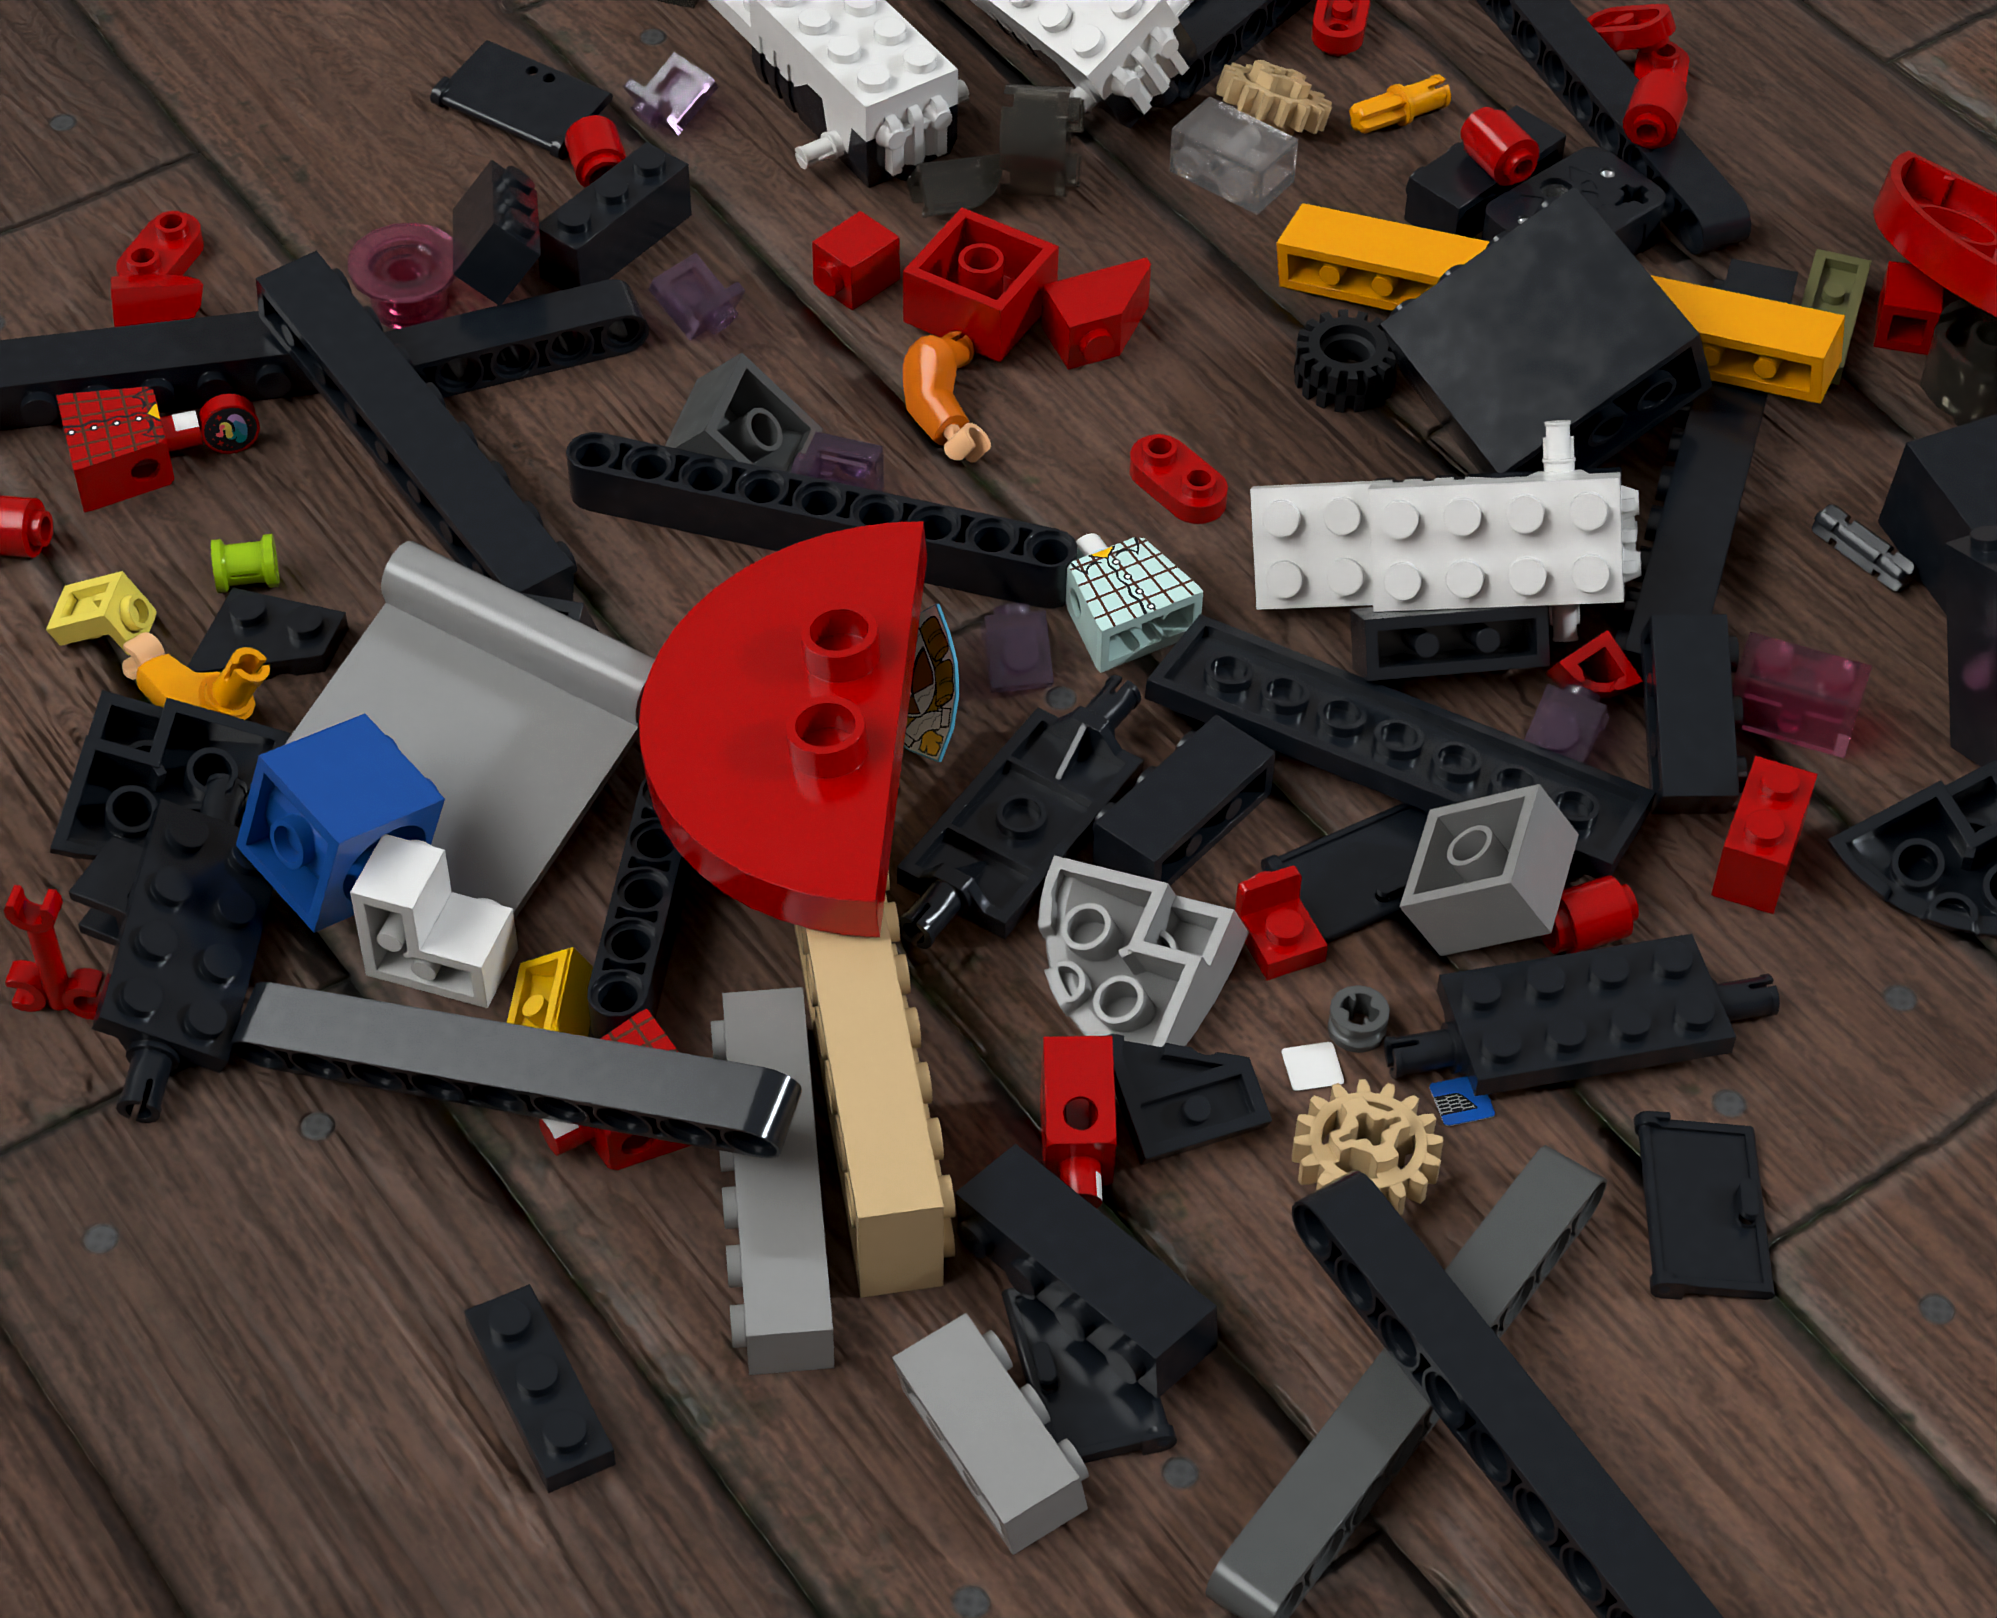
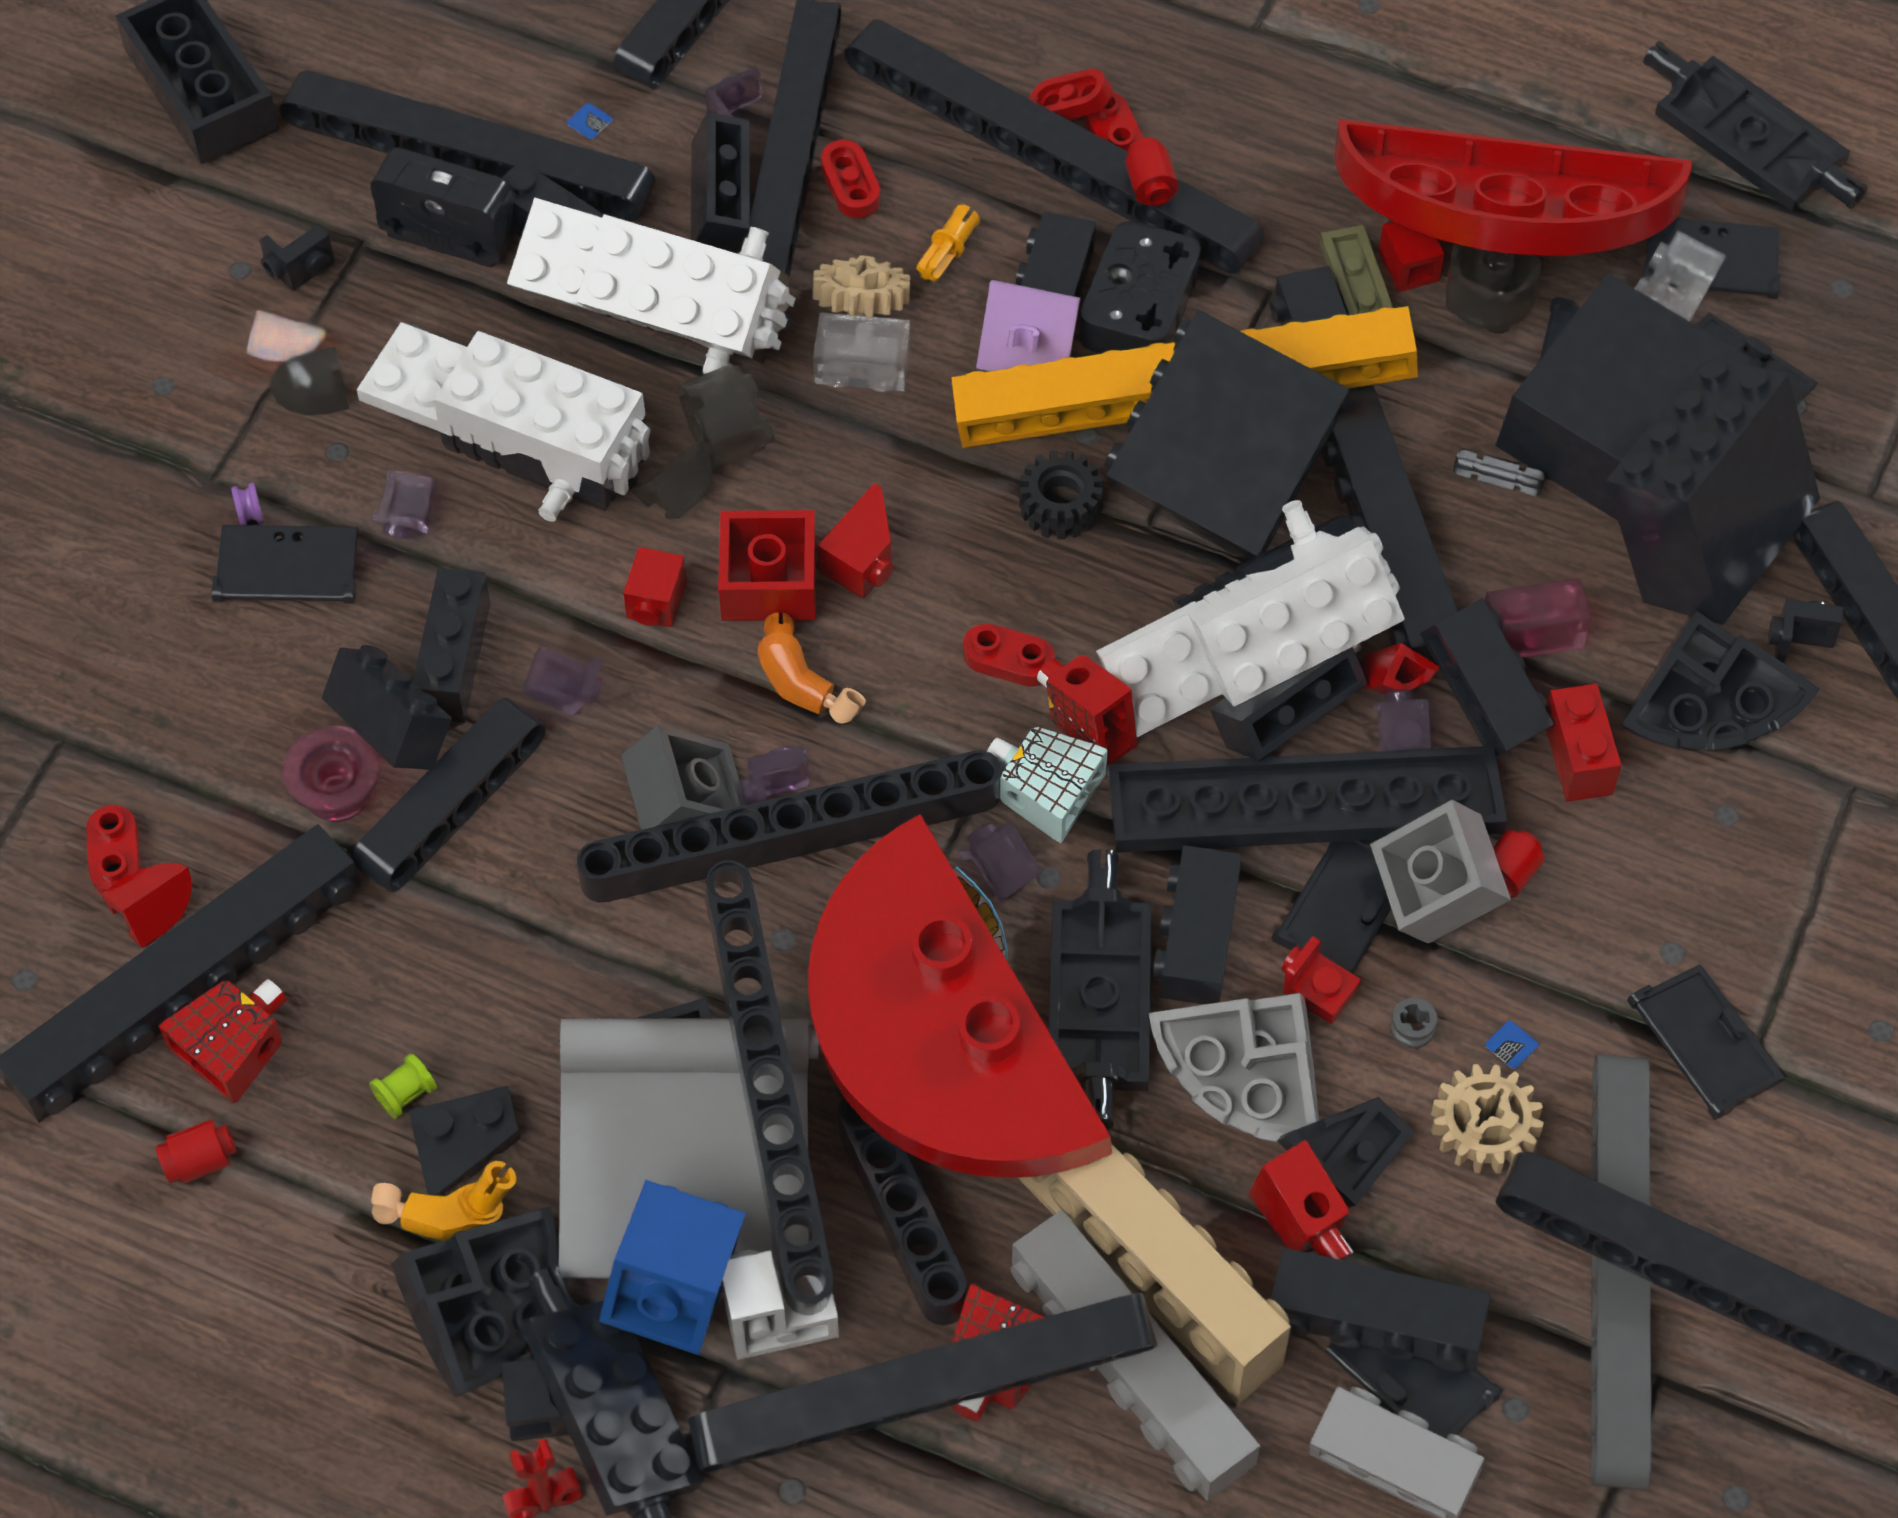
camera: 30 degrees left, 10 degrees up
(101, 608) = (328, 1184): light yellow bracket -> none
(228, 423) = (296, 973): tile -> none
(410, 430) = (459, 917): black brick -> none
(525, 33) = (247, 504): none -> medium lavender bush
(553, 993) = (886, 1314): yellow slope -> none
(555, 717) = (774, 1108): none -> black beam
(593, 147) = (390, 589): red brick -> none
(1221, 532) = (1090, 705): none -> red torso
(1312, 1066) = (1404, 1072): white sticker -> none
(1421, 187) = (1025, 326): none -> lavender piece
(1499, 146) = (1067, 262): red brick -> none
(1581, 1016) = (1554, 945): black plate -> none

